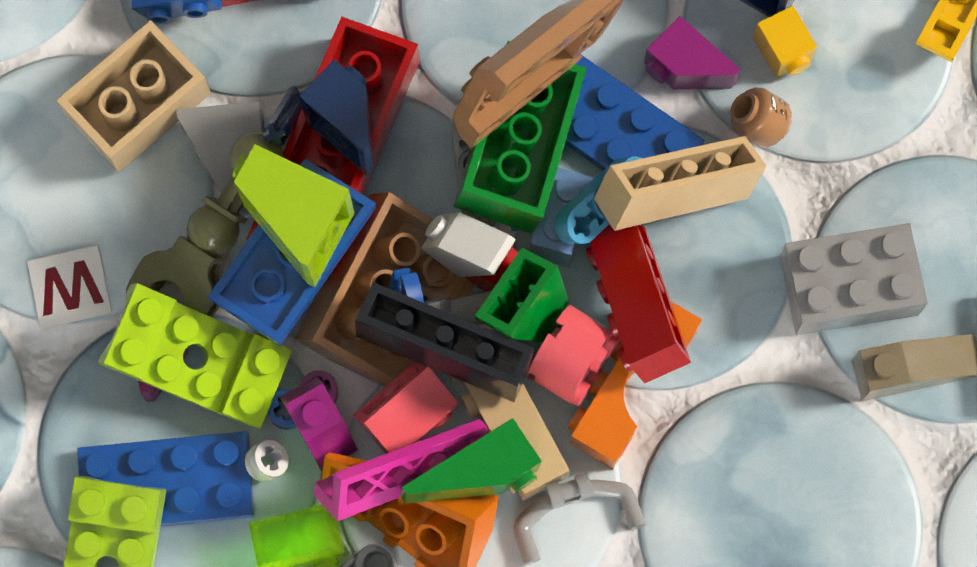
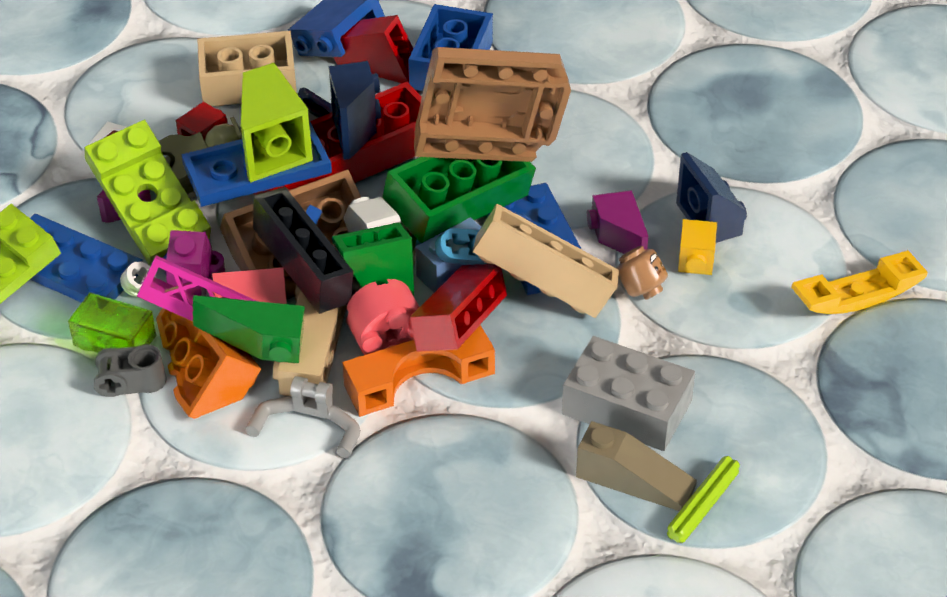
camera: 35 degrees right, 30 degrees down
(155, 211) = (200, 119): none -> red brick

